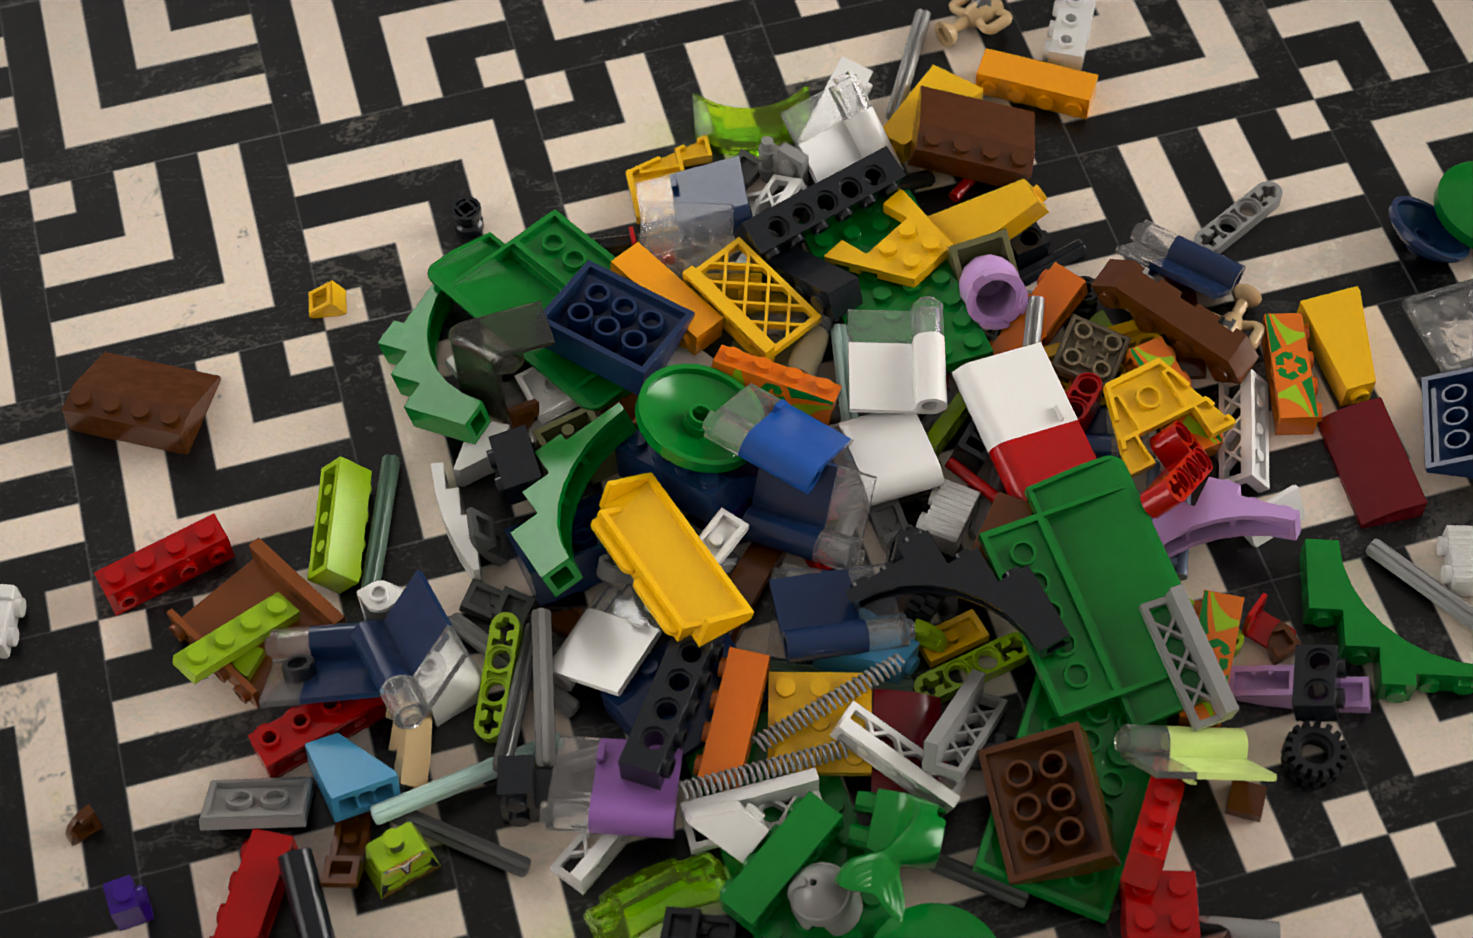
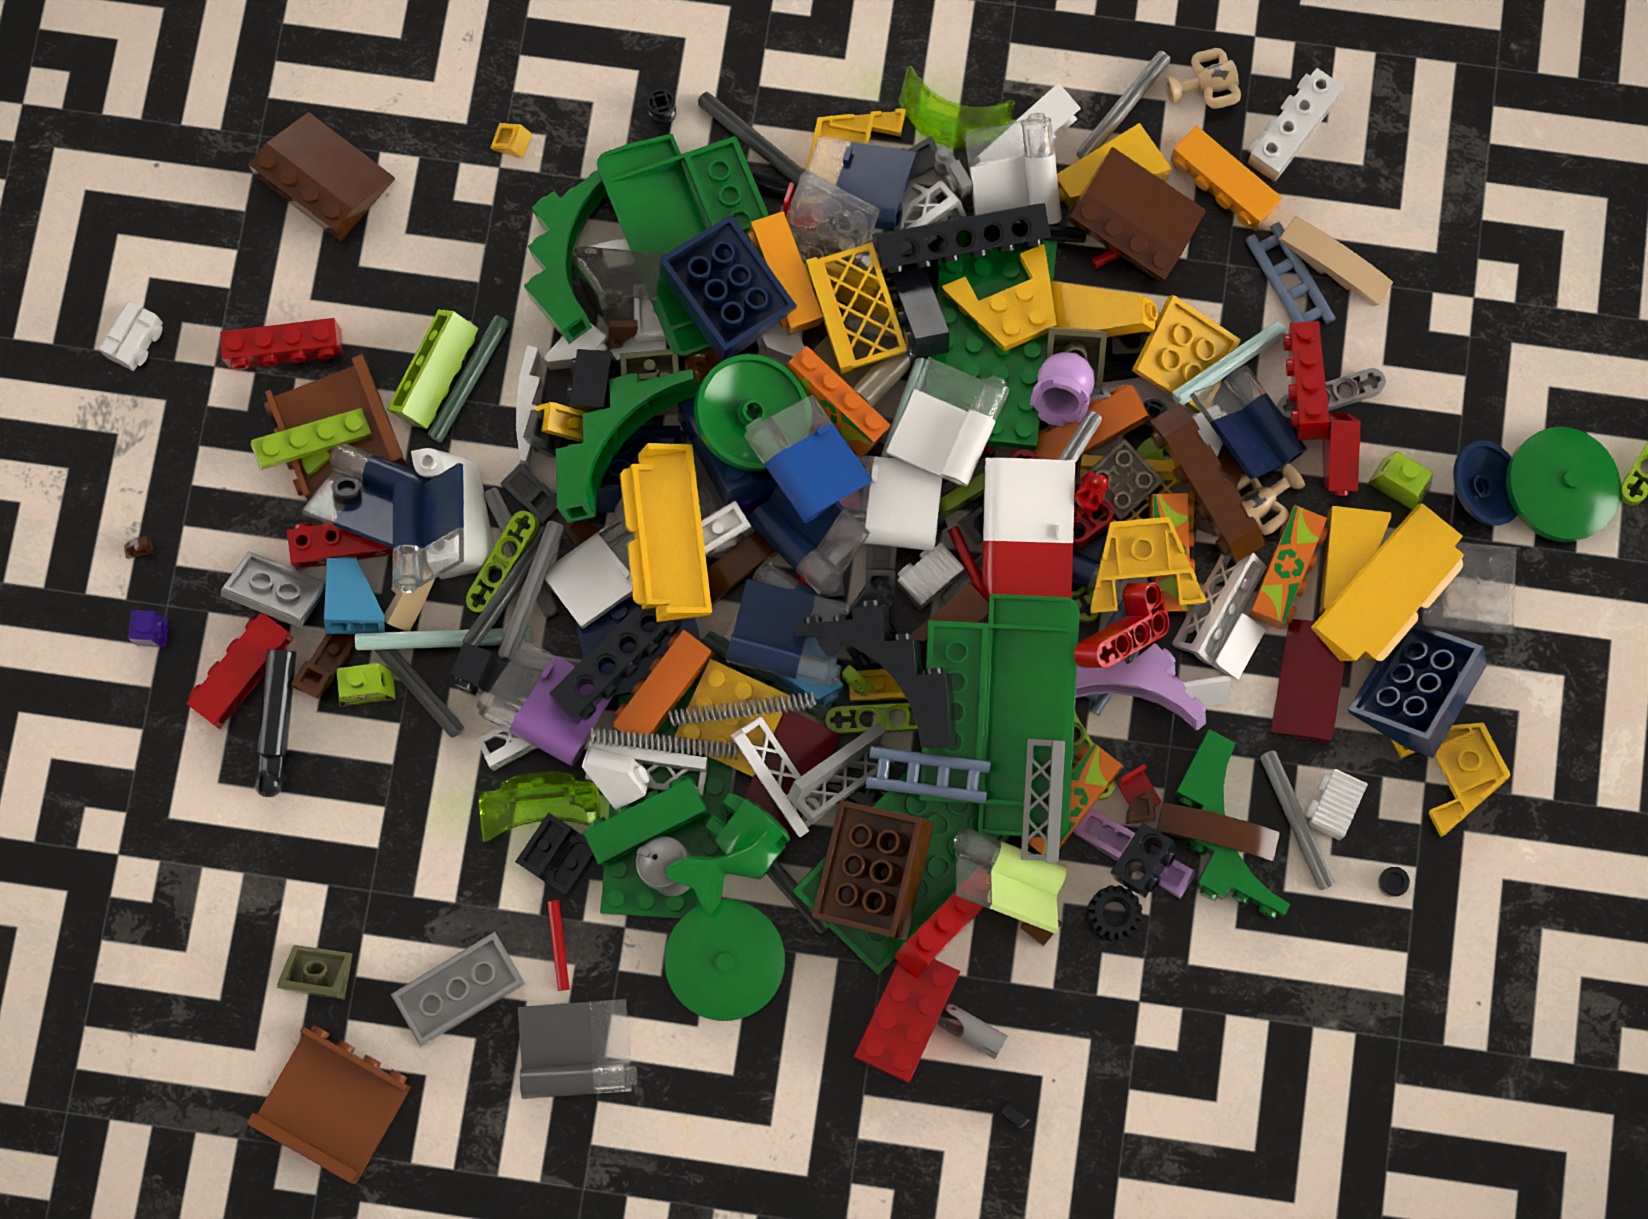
camera: 25 degrees right, 20 degrees up
(504, 510) = (562, 421): none -> yellow panel
(574, 214) = (750, 137): none -> dark grey axle
(1044, 702) = (944, 765): none -> sand blue bar
(1070, 366) = (1091, 491): none -> red piece
(1083, 227) = (1182, 347): none -> yellow plate
(1131, 221) = (1229, 362): none -> light aqua axle
(1146, 157) = (1294, 261): none -> sand blue bar
(1170, 108) = (1336, 260): none -> tan slope
(1213, 208) = (1308, 381): none -> red brick
(1278, 256) = (1341, 454): none -> red slope
(1284, 460) = (1239, 647): none -> white slope
(1348, 257) = (1402, 479): none -> lime torso
(1372, 625) = (1218, 830): none -> reddish brown slope
(1399, 348) = (1391, 587): none -> yellow slope

